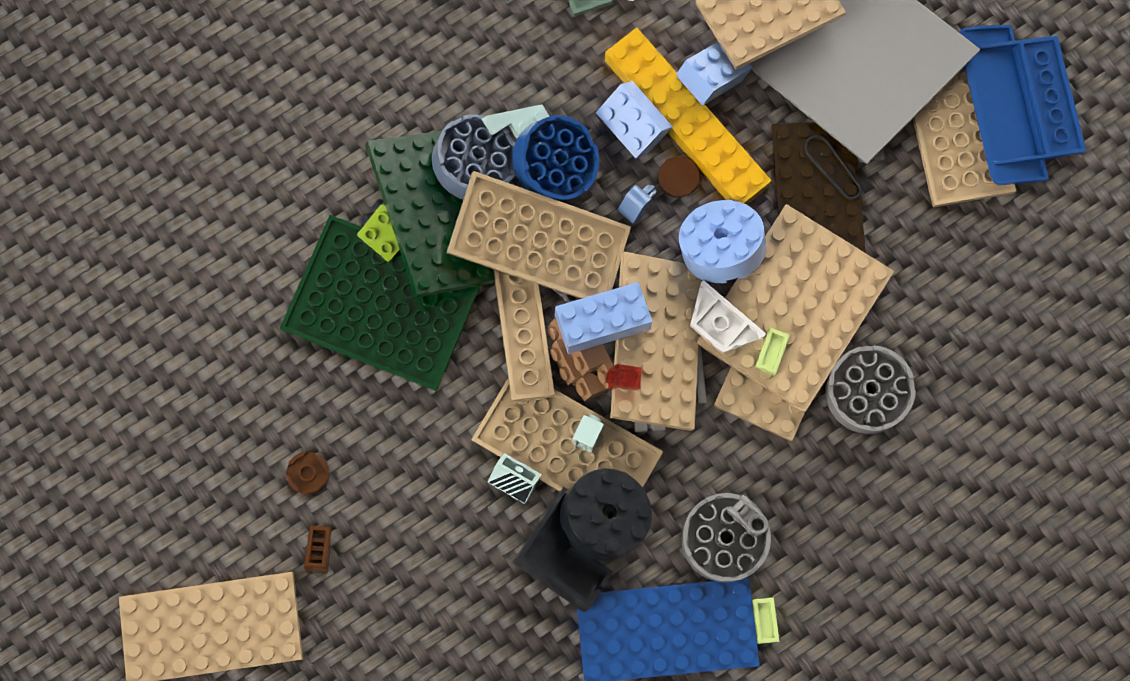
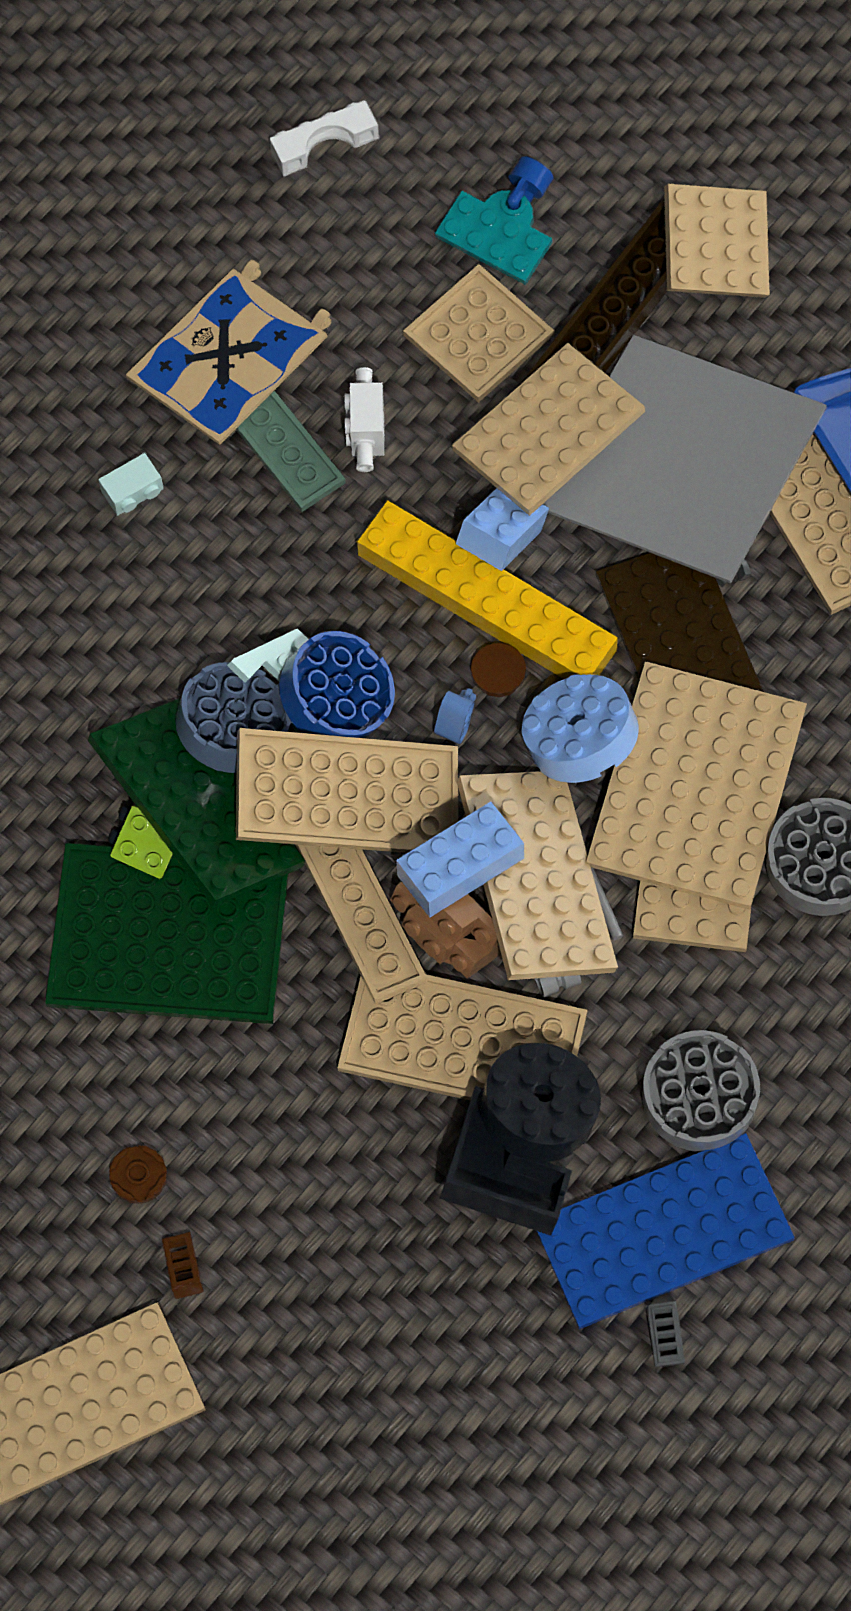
camera: 15 degrees left, 10 degrees down
(514, 478) = (408, 1098): light aqua brick -> none
(588, 433) = (485, 1010): light aqua brick -> none
(624, 377) = (509, 924): clear red bracket -> none
(634, 119) = (420, 613): light blue brick -> none
(722, 322) = (610, 825): white wing -> none
(747, 515) = (716, 1046): light grey piece -> none
(765, 620) = (784, 1180): yellowish green tile -> none
(772, 351) = (685, 843): yellowish green tile -> none
(841, 161) = (685, 612): black piece -> none

